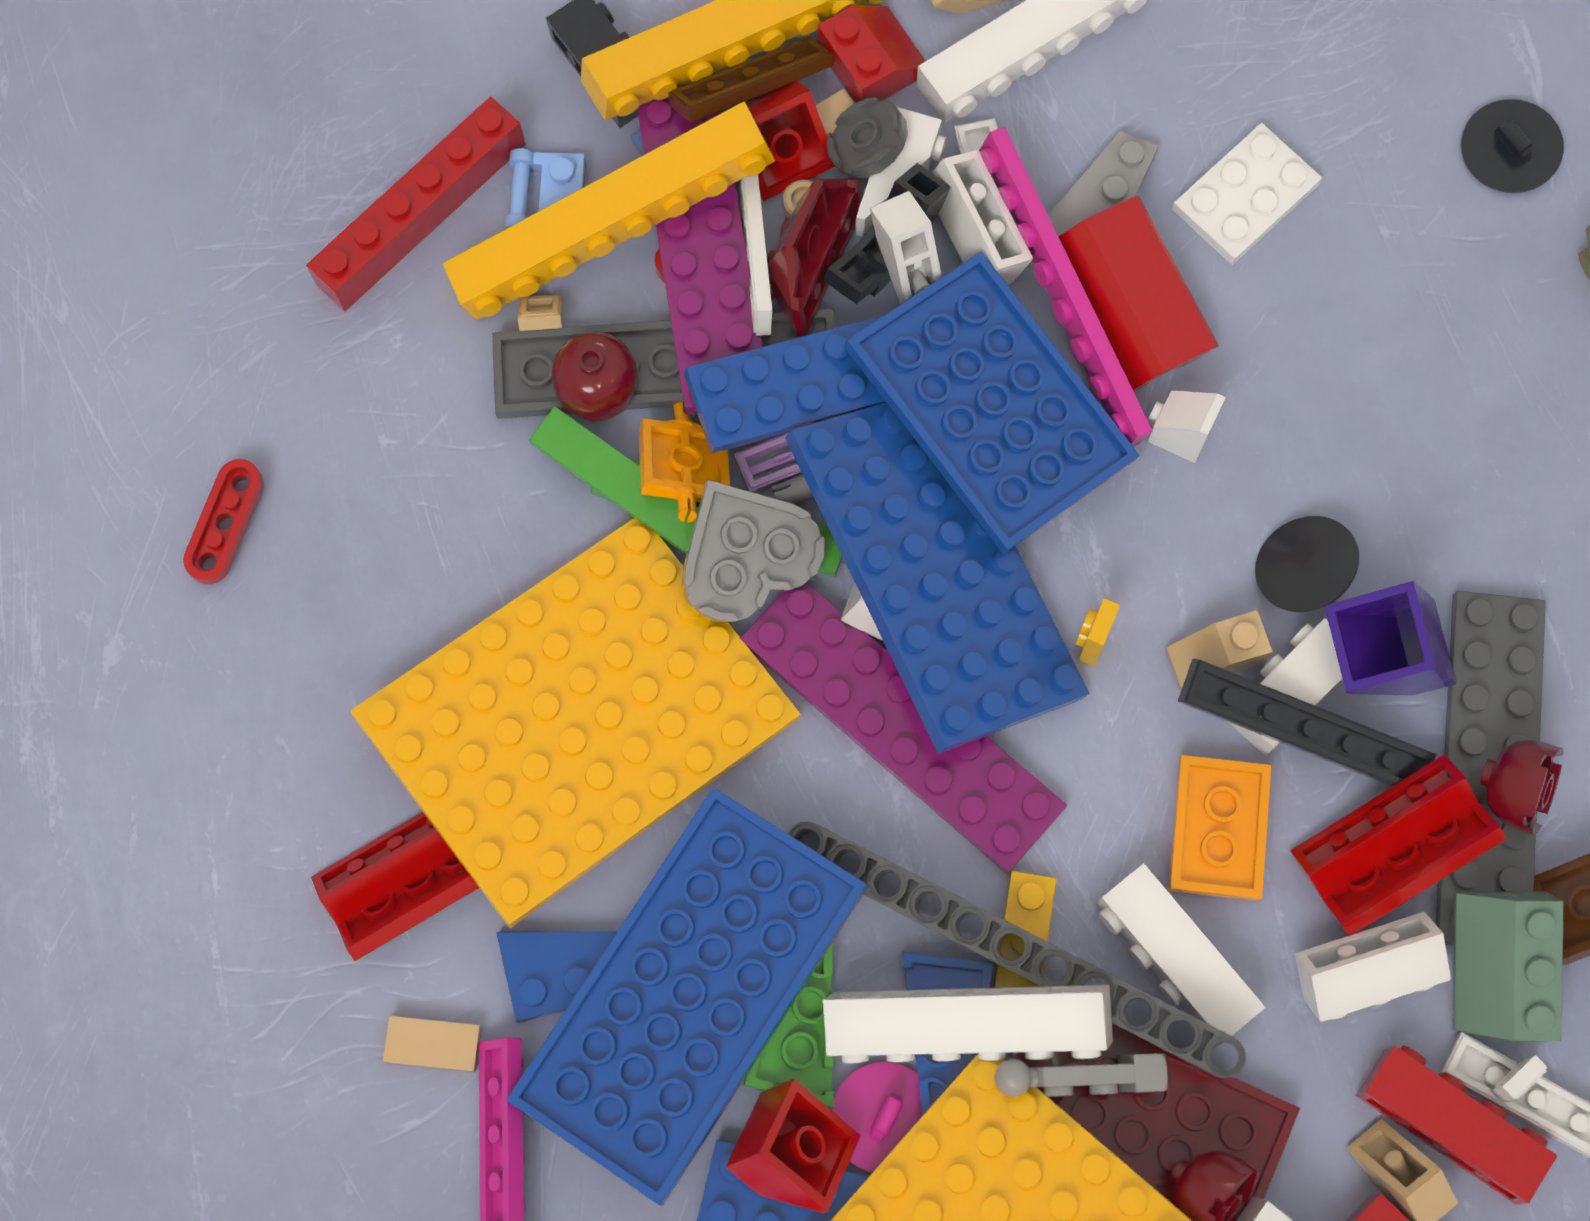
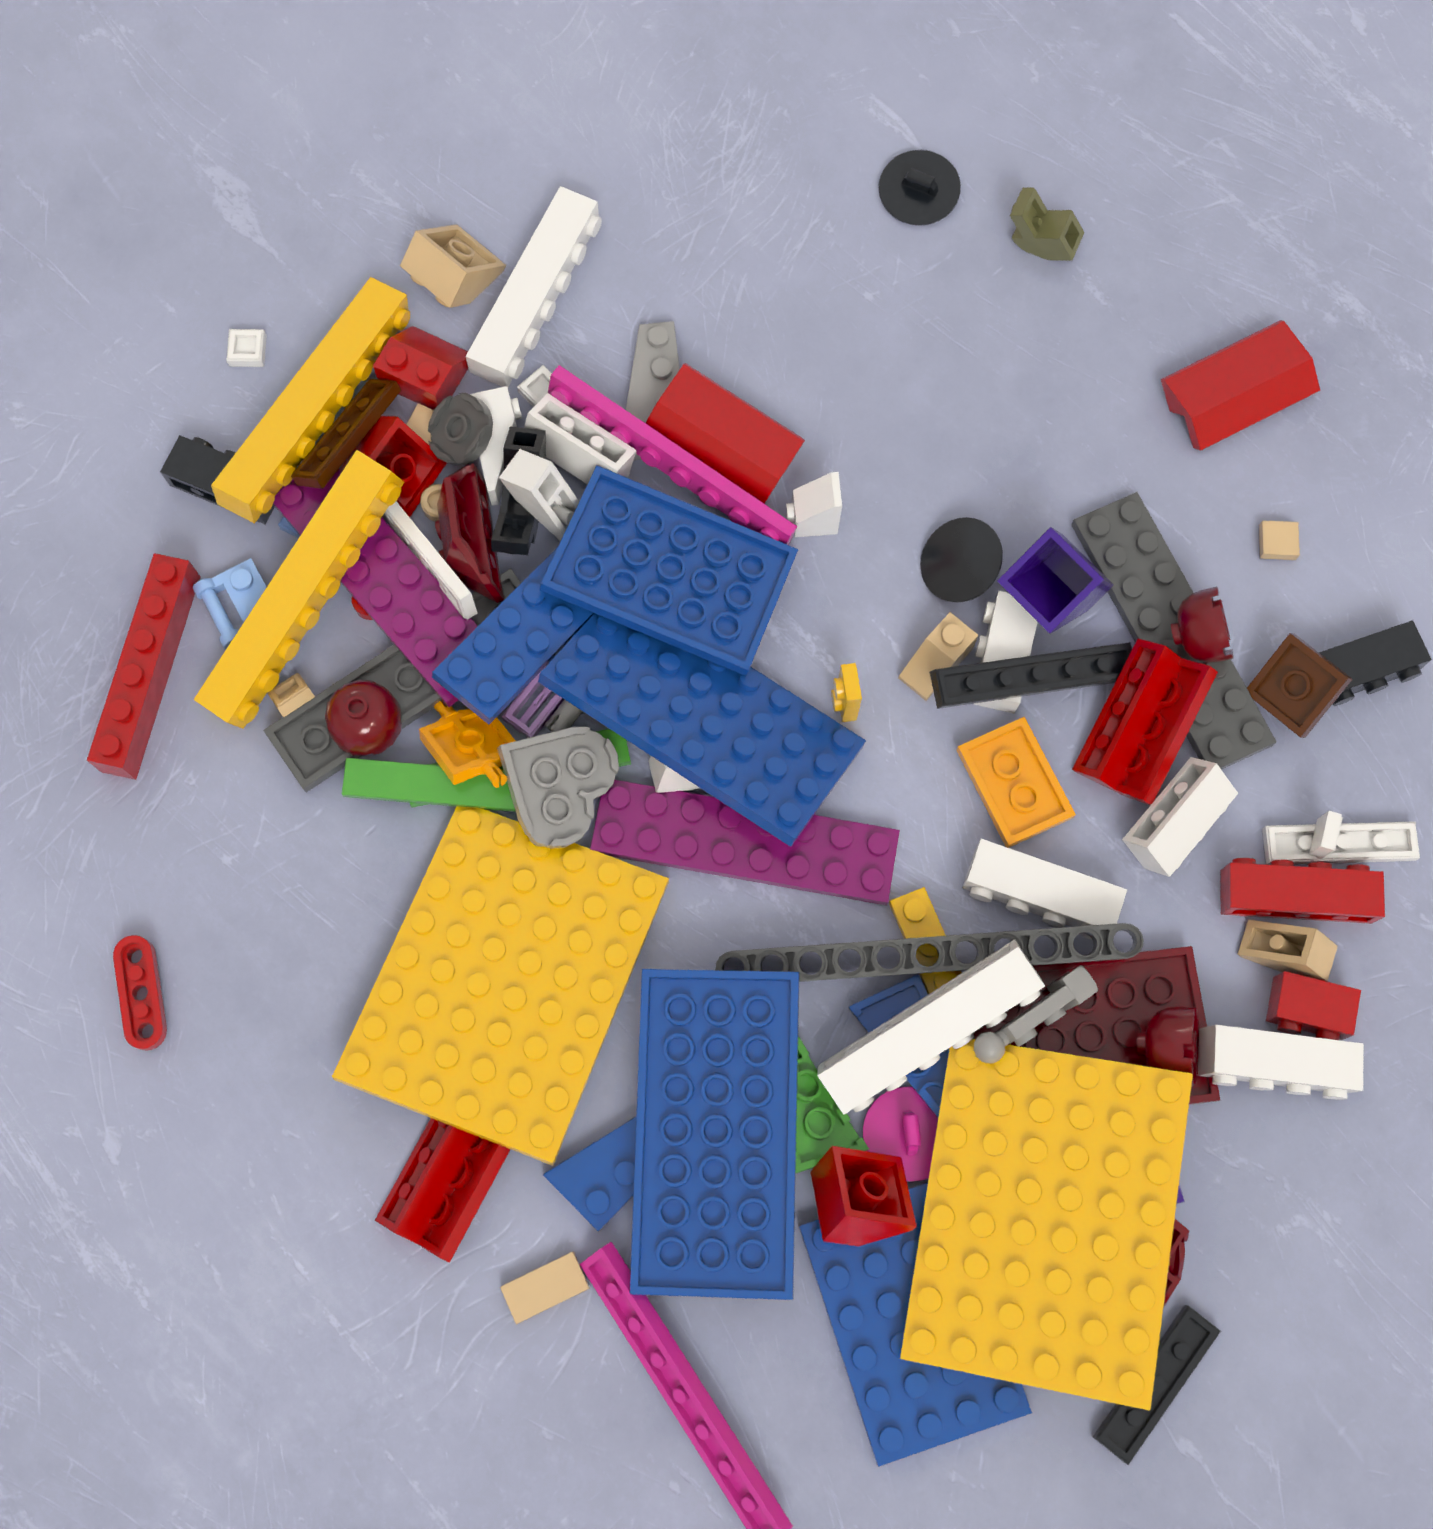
camera: 35 degrees left, 0 degrees up
(1246, 193) = (756, 321): white plate -> none
(1508, 965) = (1270, 759): sand green slope -> none

